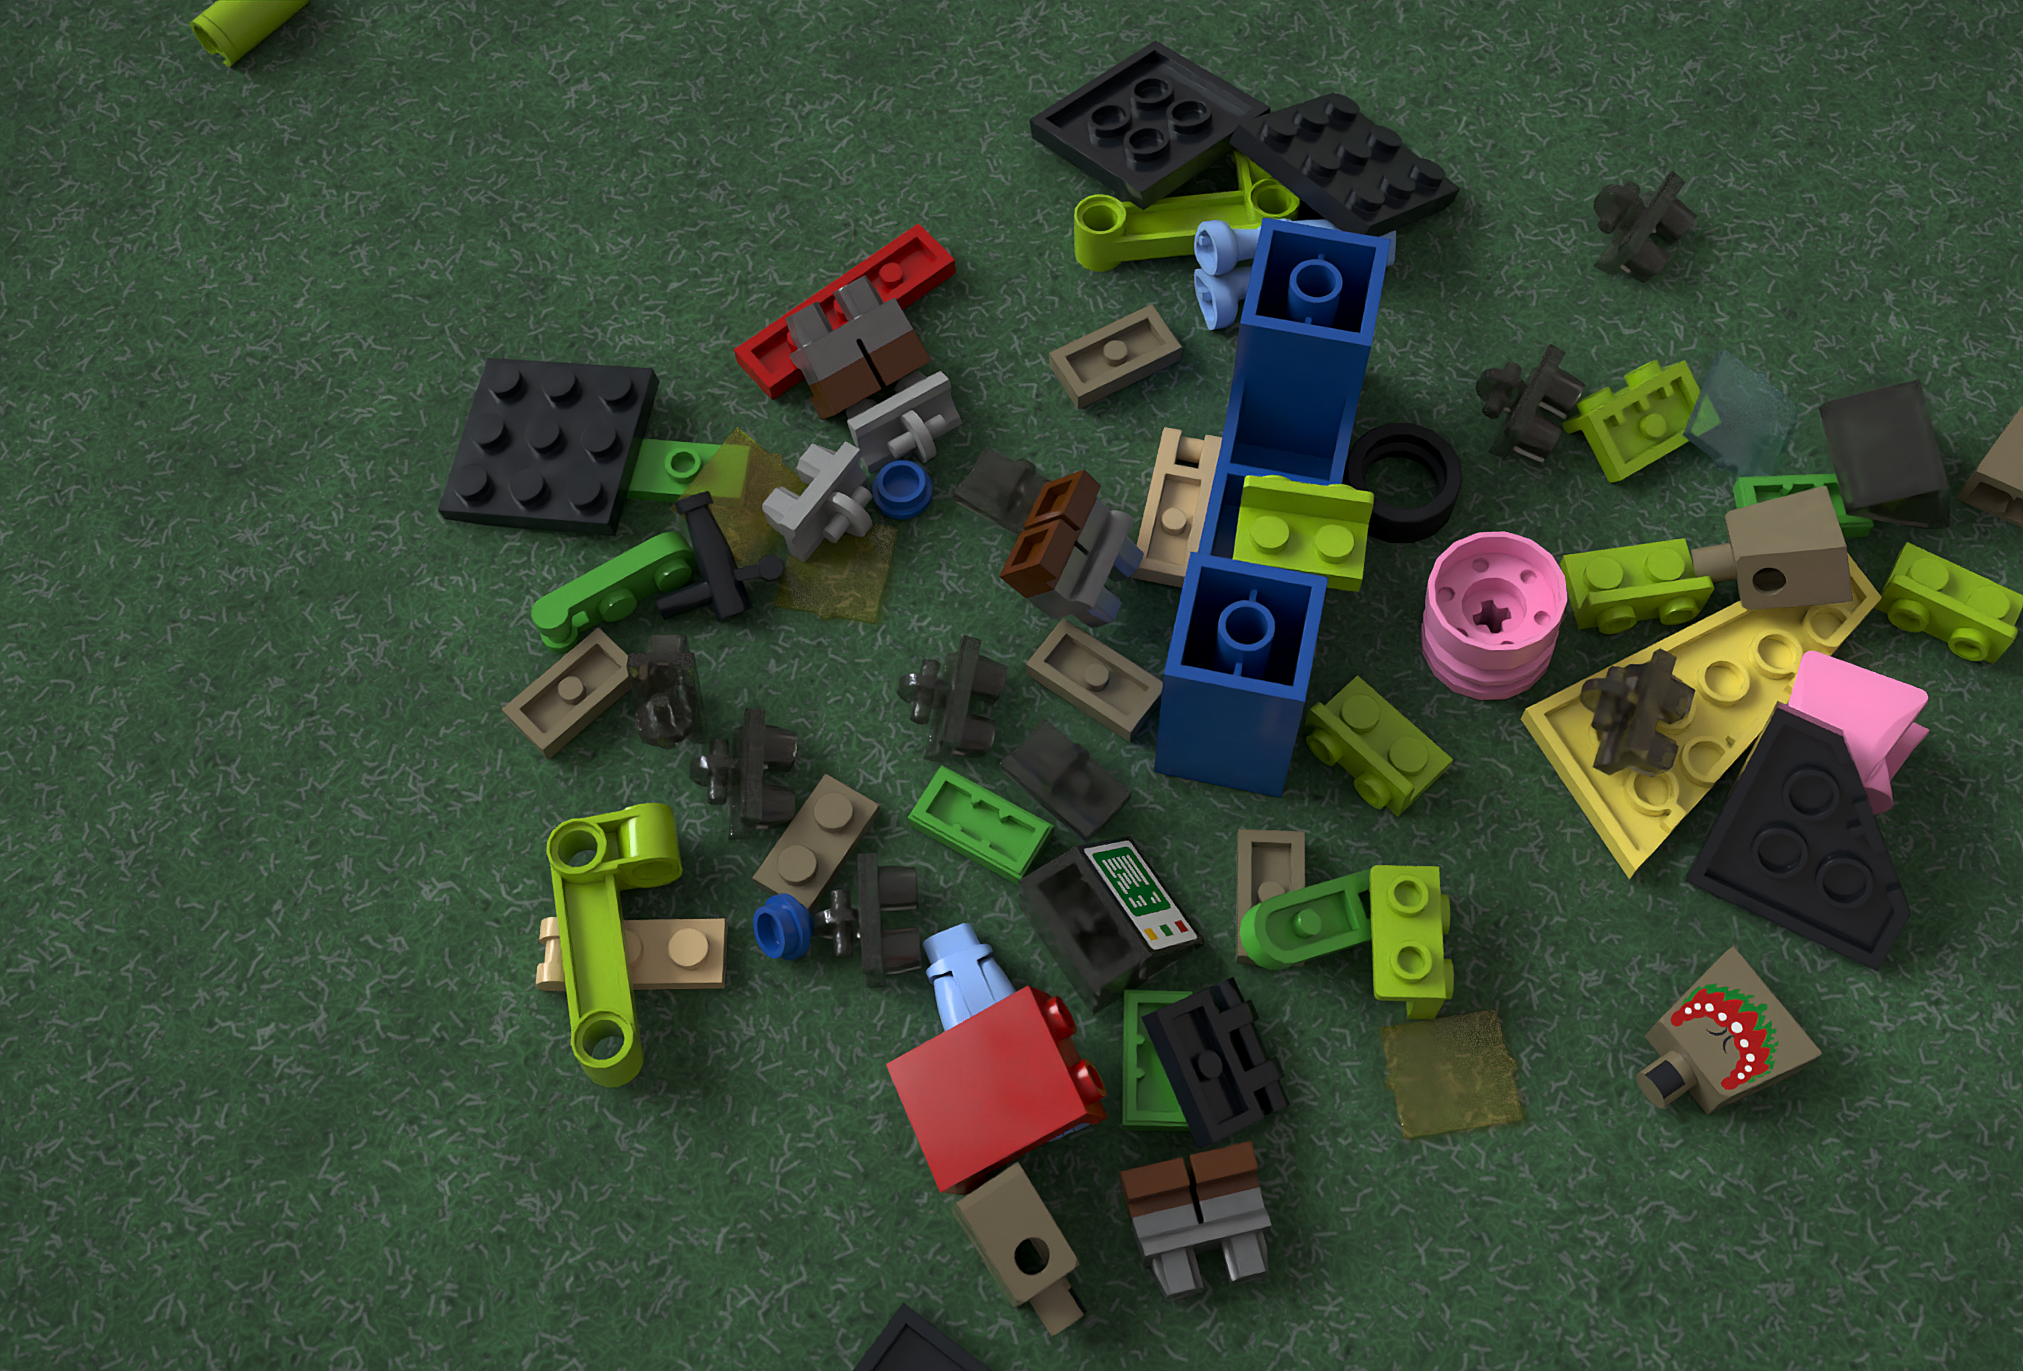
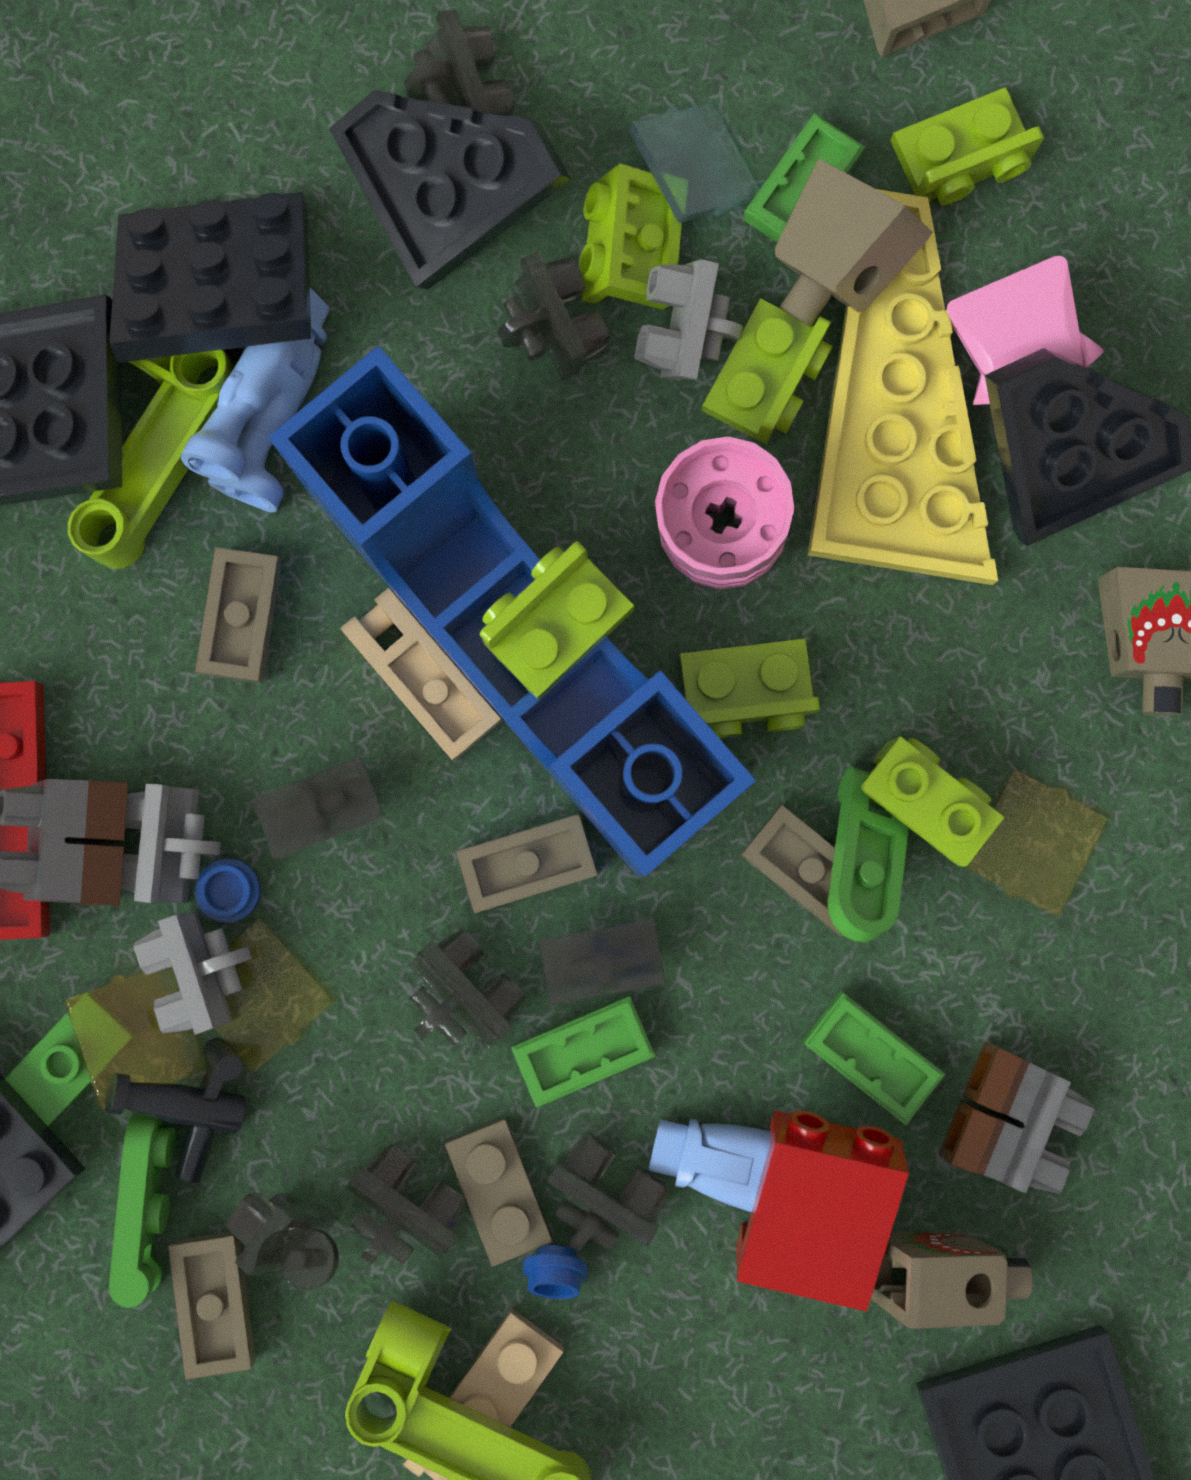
camera: 60 degrees left, 20 degrees up
(1072, 551) = (414, 809): hips -> none
(1106, 919) = (742, 1013): clear smoke slope -> none
(1205, 1068) = (913, 1036): black plate -> none
(1419, 445) = (556, 433): black tyre -> none
(1560, 260) = (445, 176): none -> black plate
(1628, 710) = (888, 479): clear smoke hips -> none
(1636, 470) = (695, 324): none -> light grey hips
(1888, 457) = (821, 83): clear smoke slope -> none

